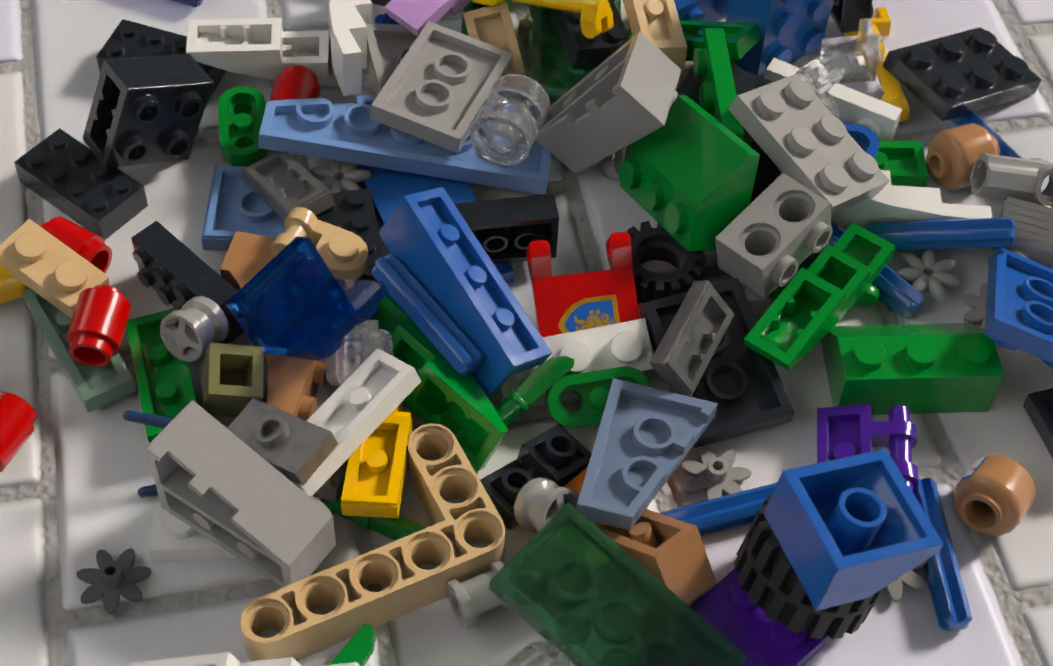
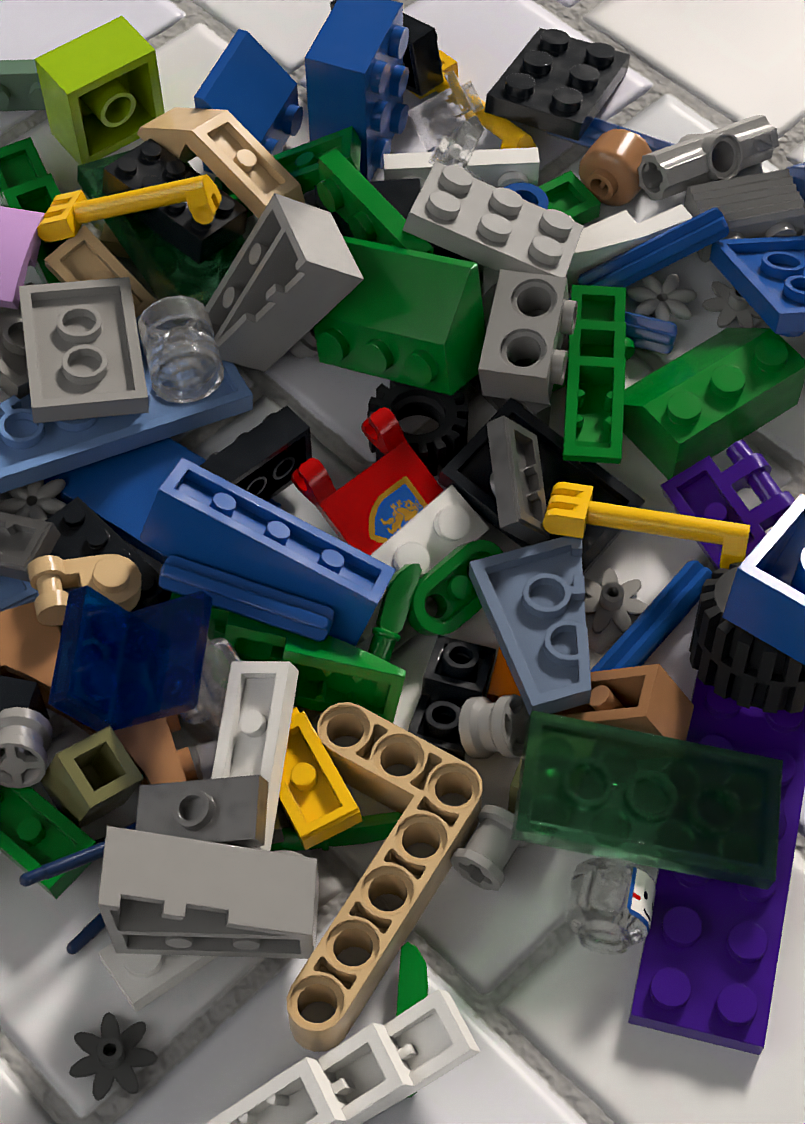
camera: 30 degrees left, 5 degrees up
(729, 383) = (573, 508): none -> yellow hinge

